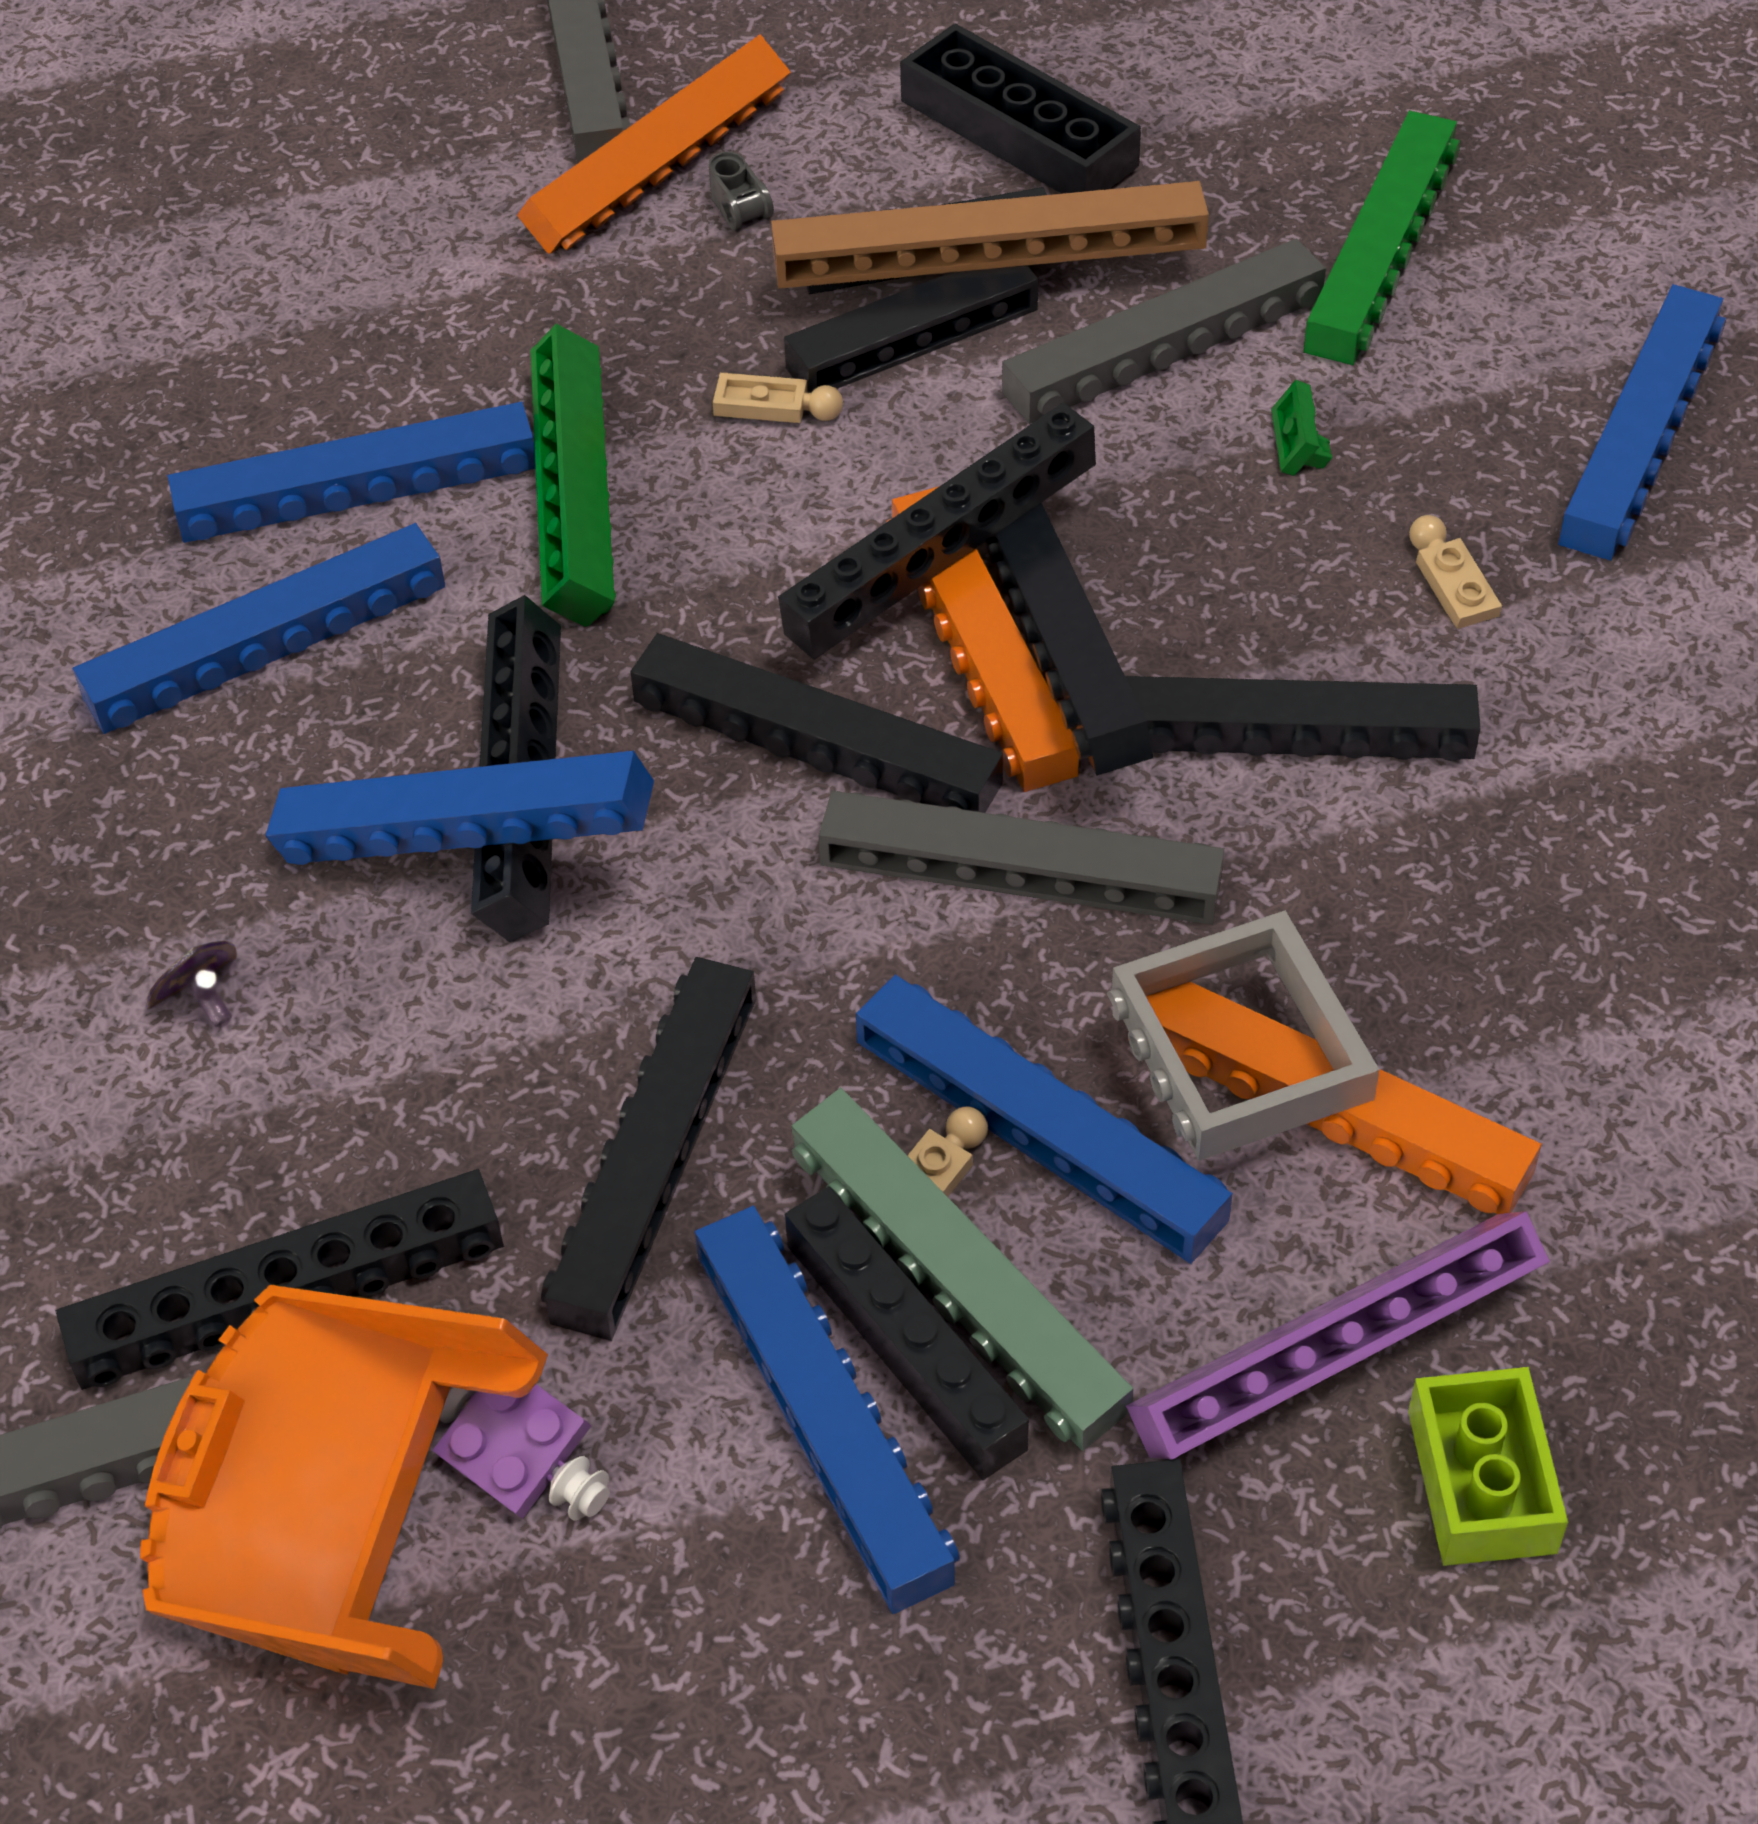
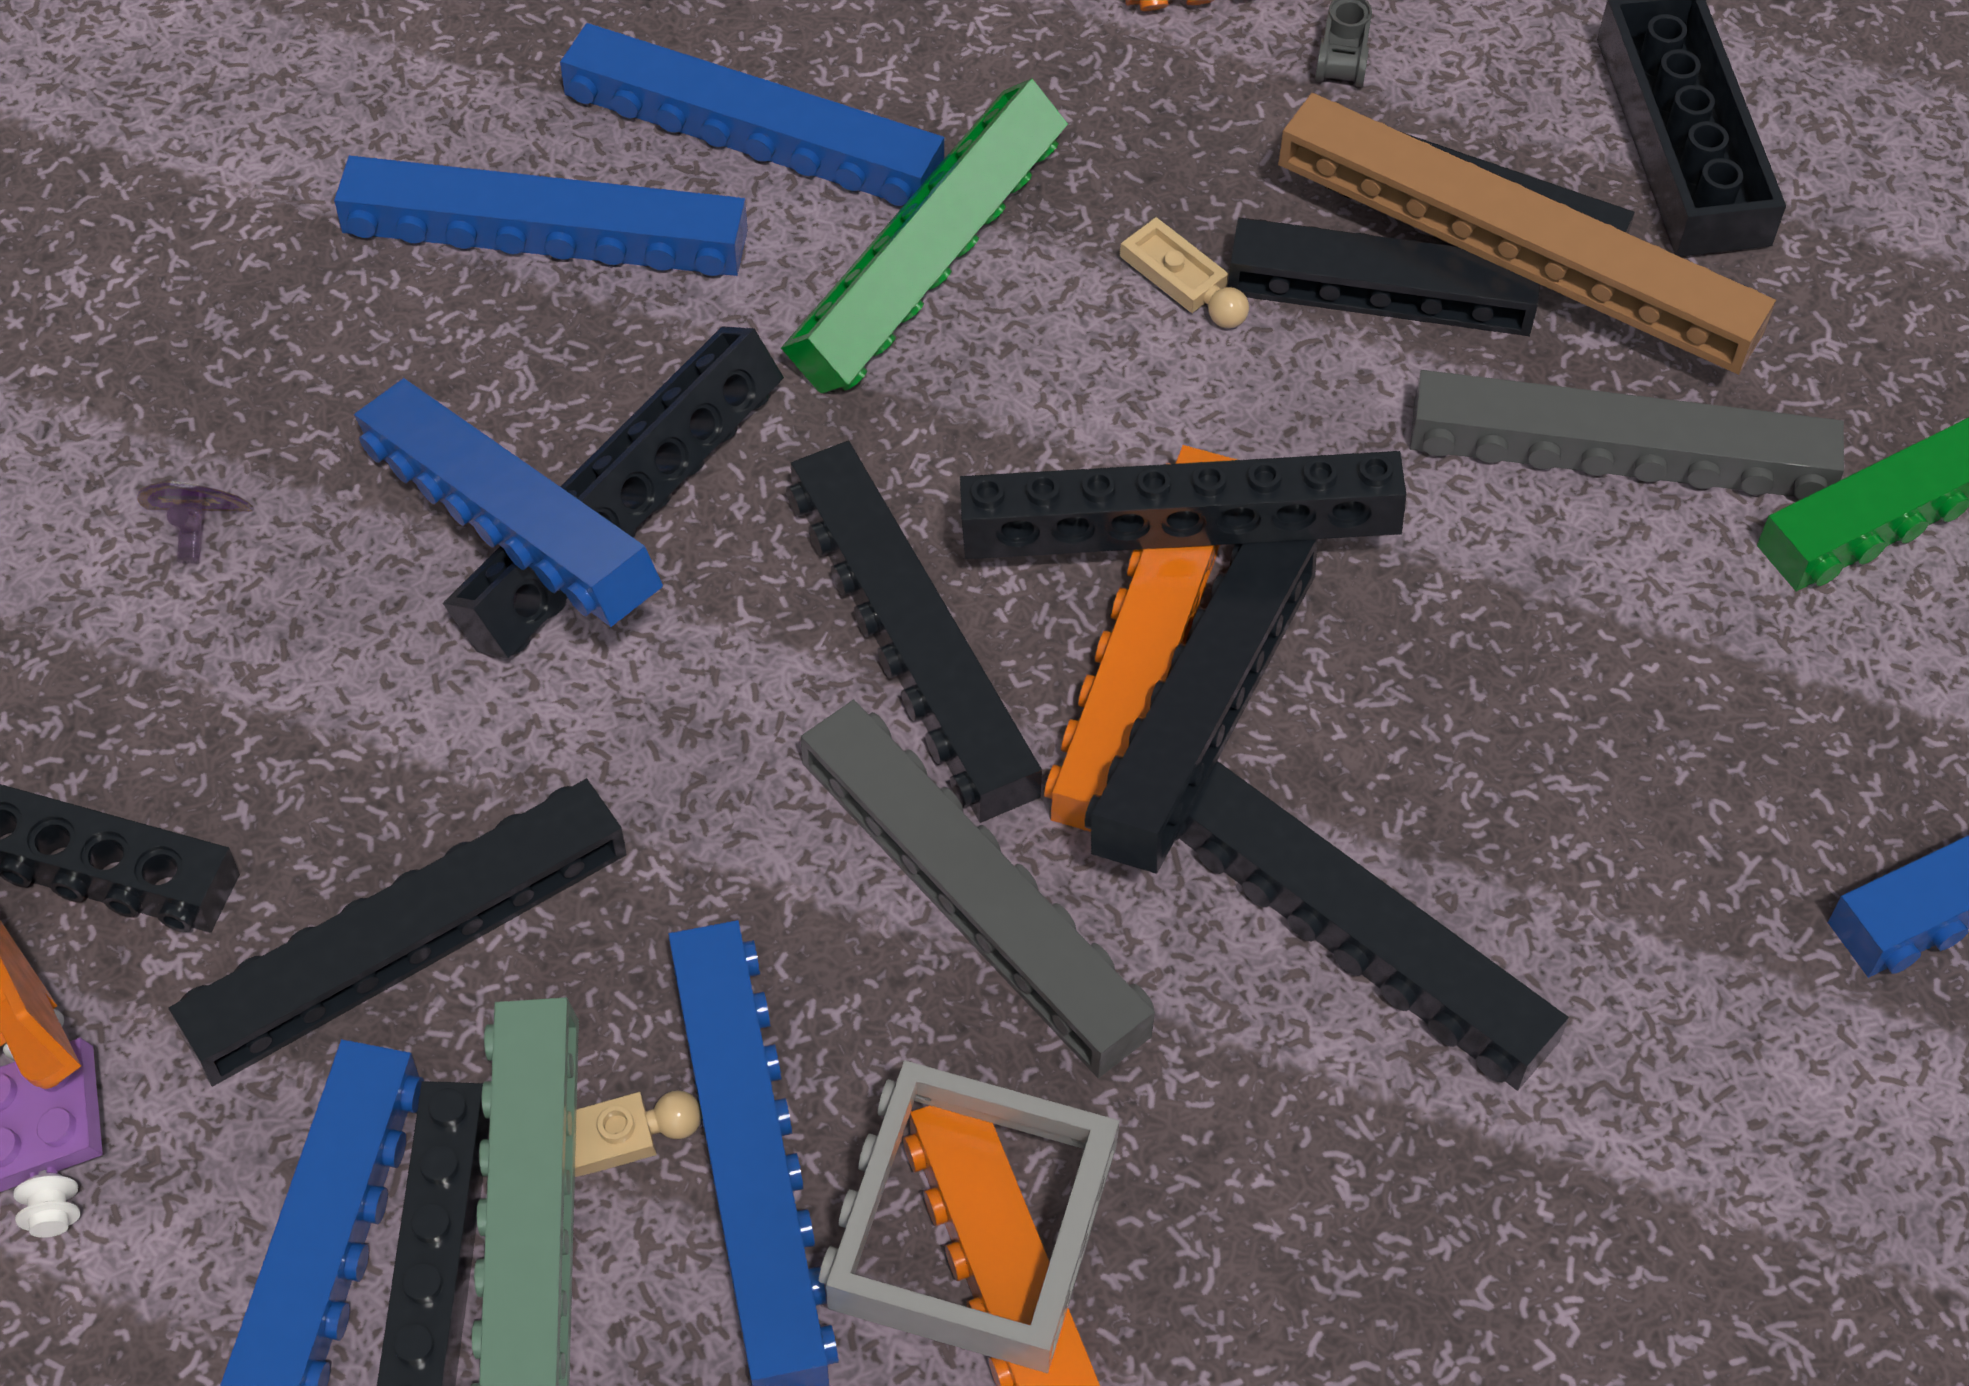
camera: 35 degrees right, 5 degrees up
(1296, 431) = (1650, 637): green hinge -> none
(1452, 574) = (1678, 881): tan plate -> none

